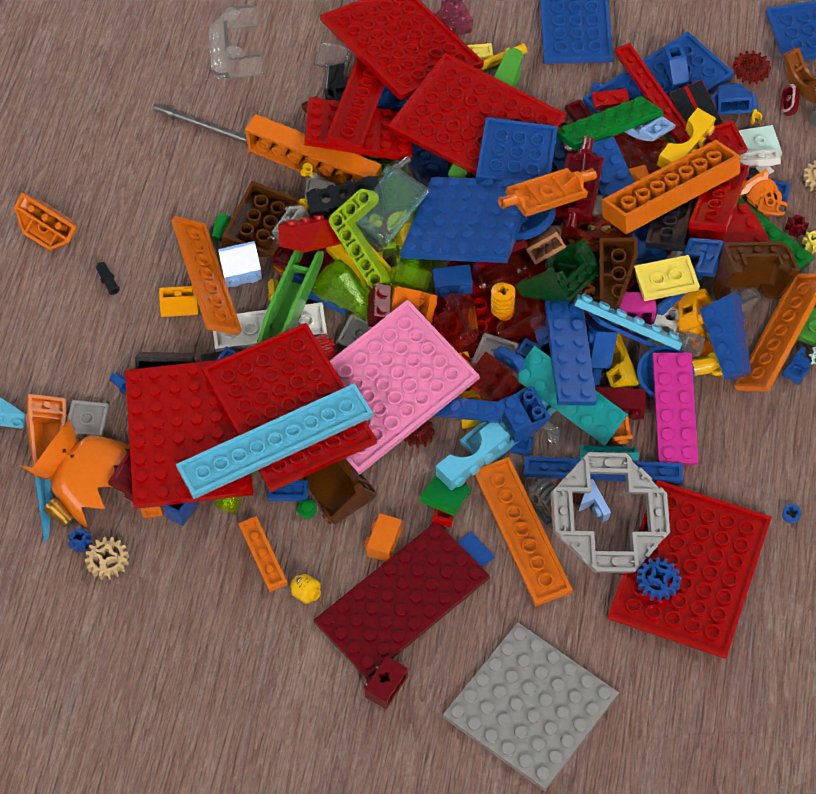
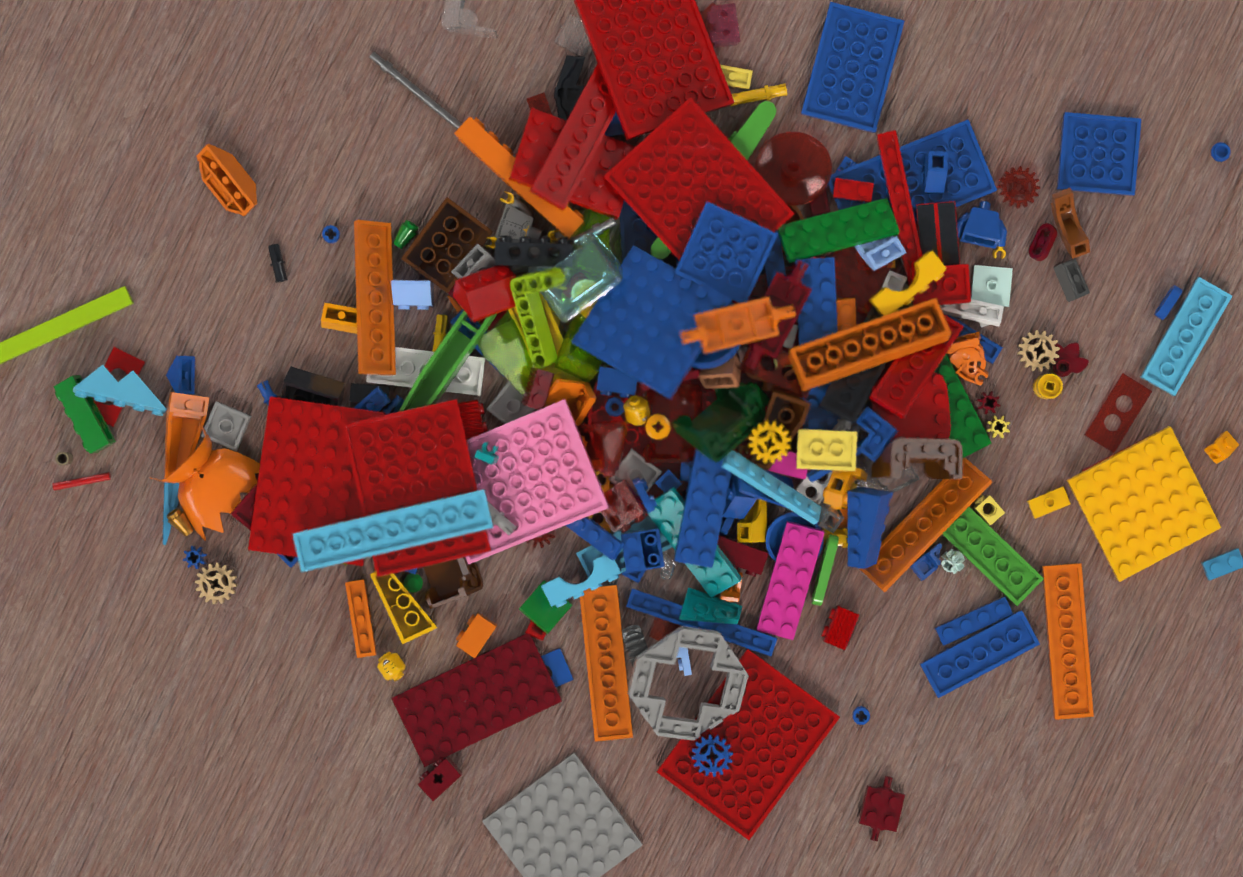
camera: 20 degrees right, 30 degrees up
(33, 383) = (182, 374): none -> blue slope
(152, 250) = (335, 230): none -> blue bush
(302, 530) = (404, 611): none -> yellow wedge
(348, 366) = (486, 455): none -> teal tile
(382, 420) = (500, 520): none -> light grey pin
(480, 295) = (636, 410): none -> yellow head
(558, 90) = (795, 167): none -> clear red dish
(603, 278) = (762, 440): none -> yellow gear
(704, 391) = (824, 570): none -> bright green beam
(739, 439) = (840, 627): none -> red brick

